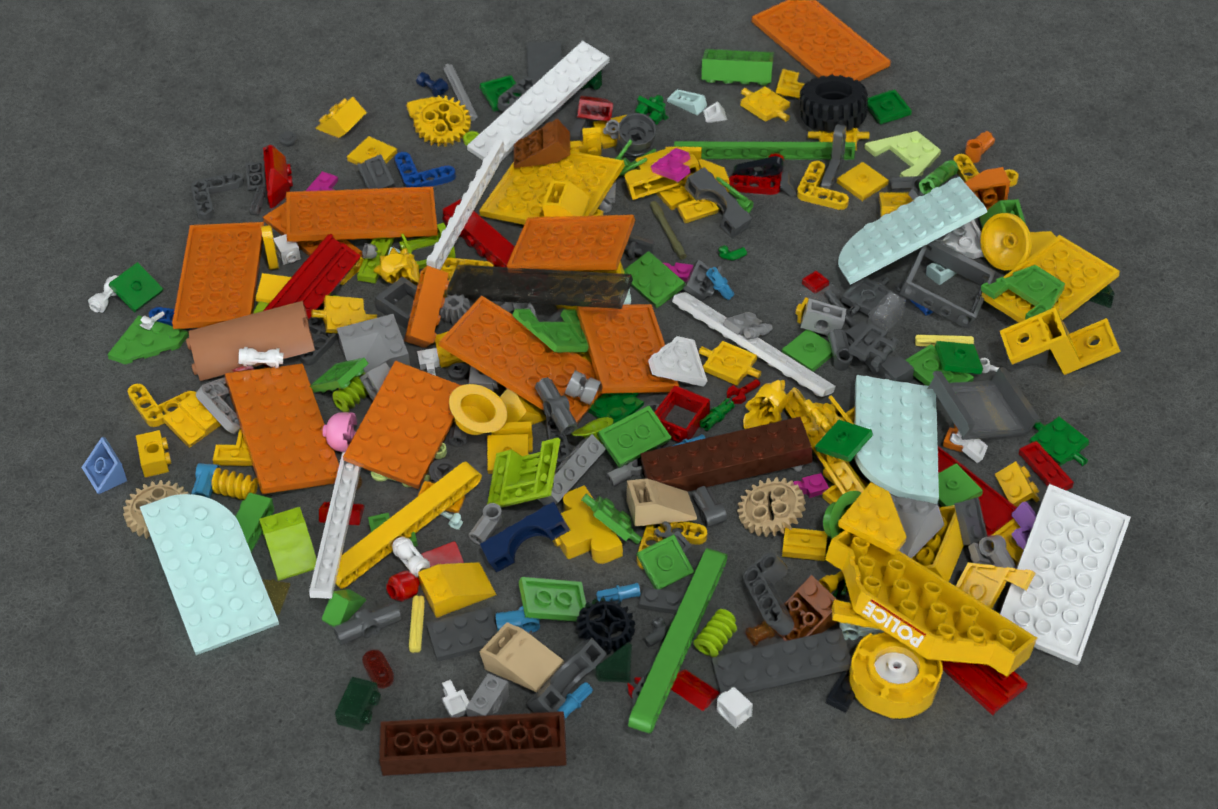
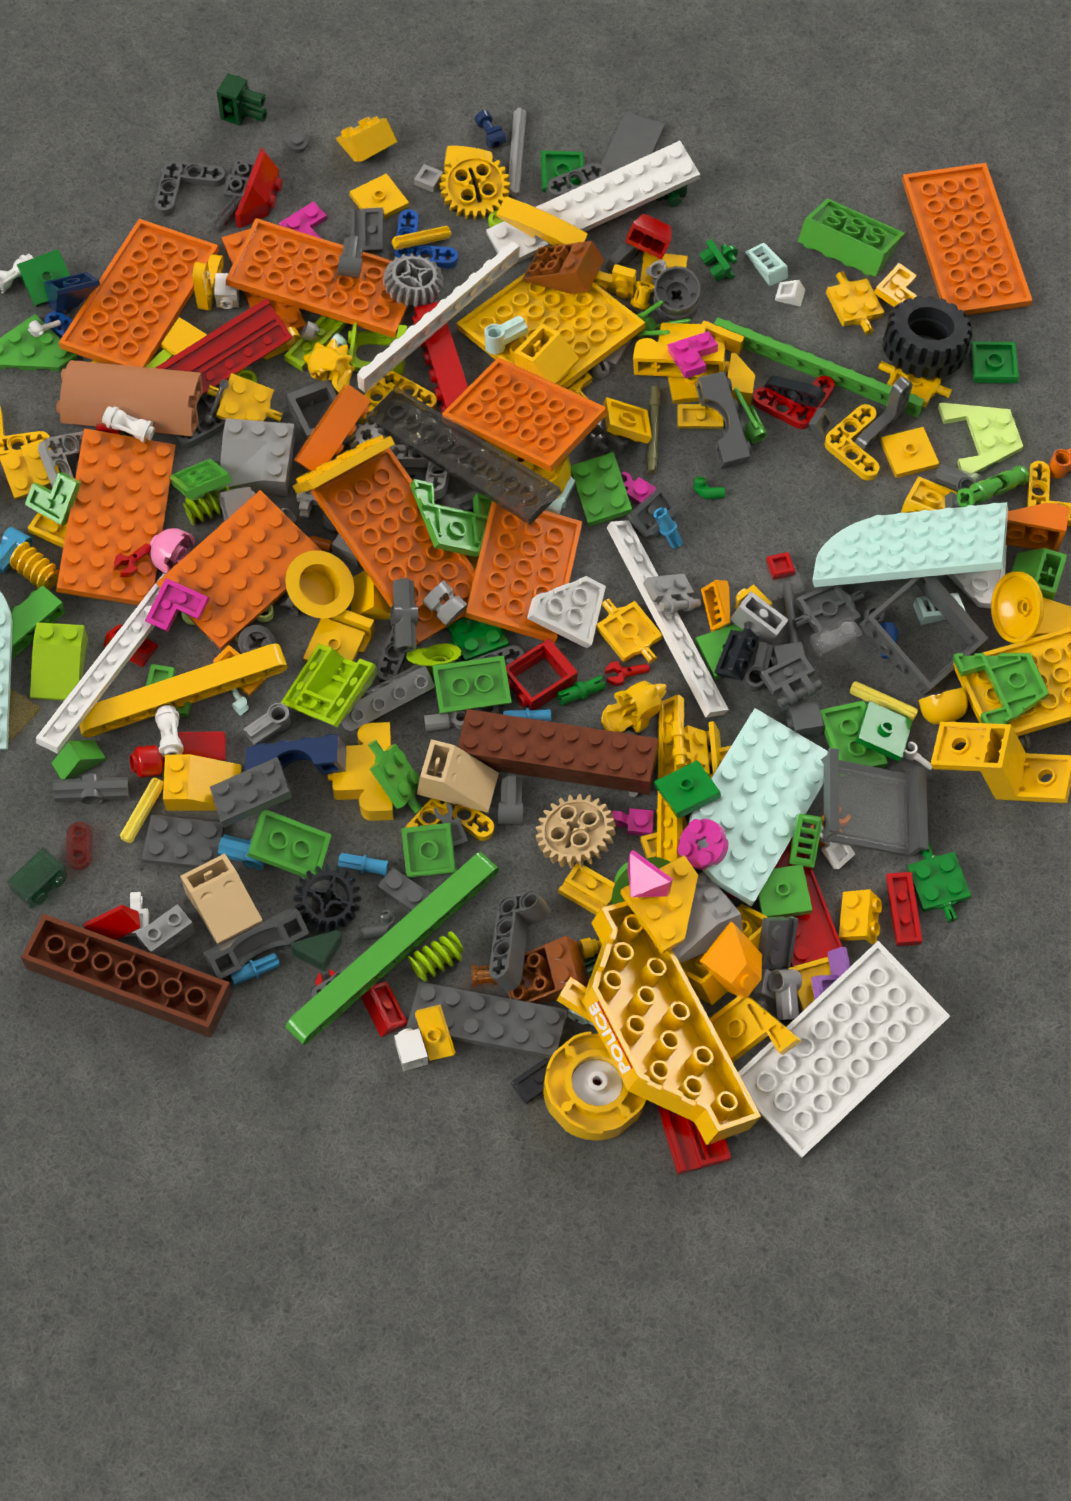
camera: 20 degrees right, 15 degrees up
(162, 288) = (70, 291): none -> dark blue slope
(225, 124) = (238, 101): none -> dark green brick
(232, 429) = (56, 502): none -> plate
(313, 449) = (120, 560): none -> red bar
(324, 303) = (223, 385): none -> dark grey hinge
(365, 459) = (175, 598): none -> dark pink plate
(376, 192) = (351, 260): none -> dark grey piece
(403, 128) = (428, 178): none -> light grey plate
(420, 166) = (421, 237): none -> yellow axle
(432, 191) = (413, 280): none -> light grey gear
(445, 705) = (115, 922): none -> red slope
(452, 318) = (343, 463): none -> yellow plate
(504, 570) = (250, 792): none -> dark grey plate
(506, 124) = (539, 223): none -> yellow slope
(522, 201) = (499, 335): none -> light aqua piece
(609, 147) = (642, 295): none -> yellow bush
(650, 228) = (627, 421): none -> yellow plate
(747, 685) = (435, 1032): none -> yellow plate
(774, 318) = (717, 598): none -> light orange slope
(822, 344) = (737, 654): none -> black bracket
(855, 502) = (646, 879): none -> slope
(876, 459) = (716, 840): none -> dark pink plate
(940, 438) = (803, 818): none -> bright green slope
(951, 543) = (734, 962): none -> light orange slope
(988, 328) = (945, 706): none -> yellow cylinder

